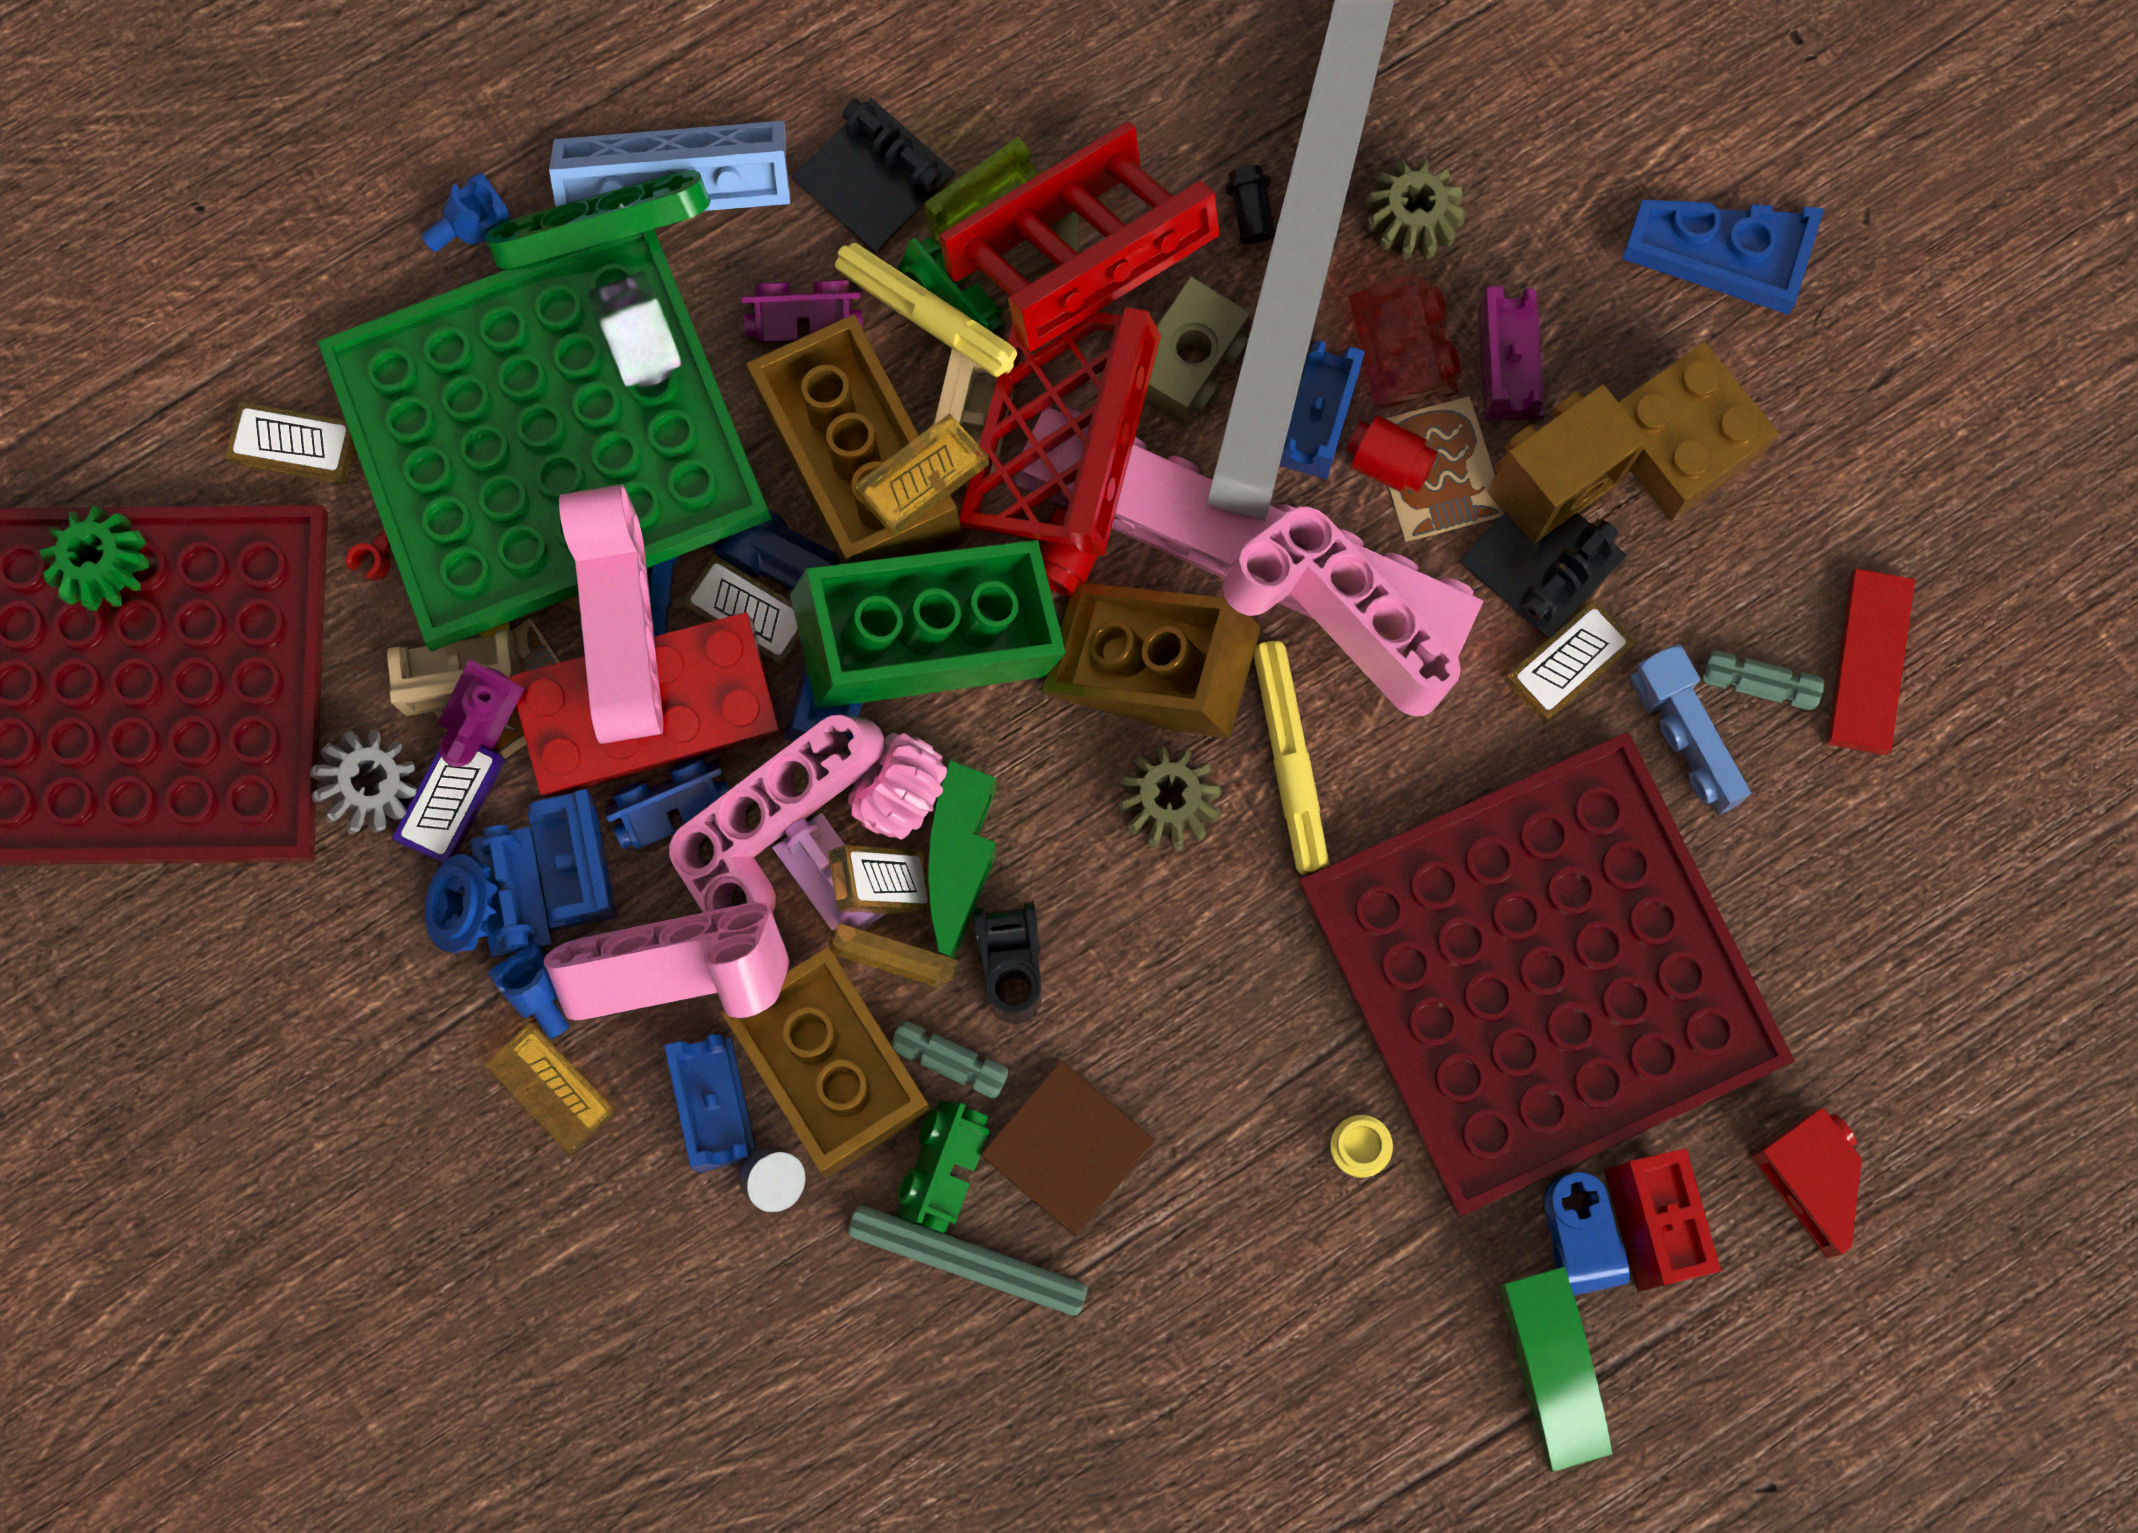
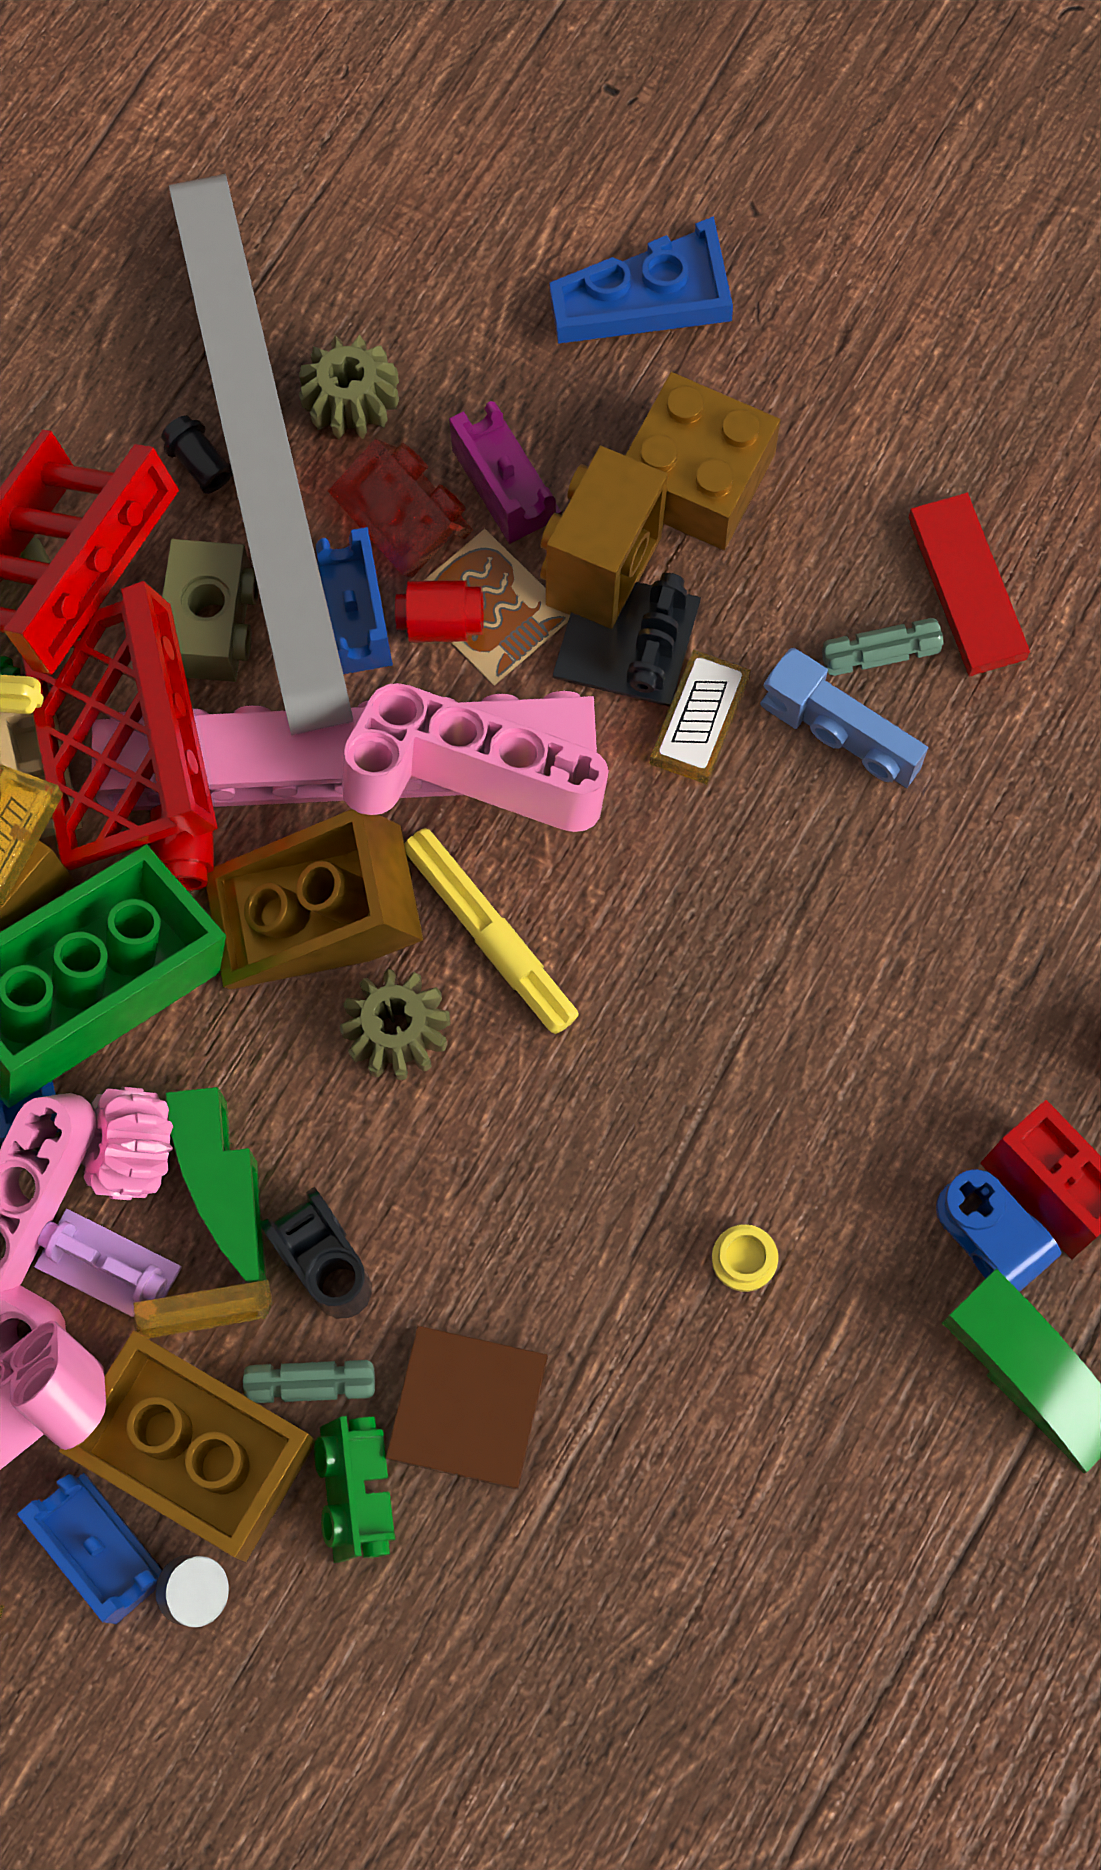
camera: 25 degrees left, 5 degrees down
(879, 880) = (153, 1242): tile -> none
(967, 1260) = (424, 1568): sand green axle -> none
(1544, 973) = (827, 1011): dark red plate -> none

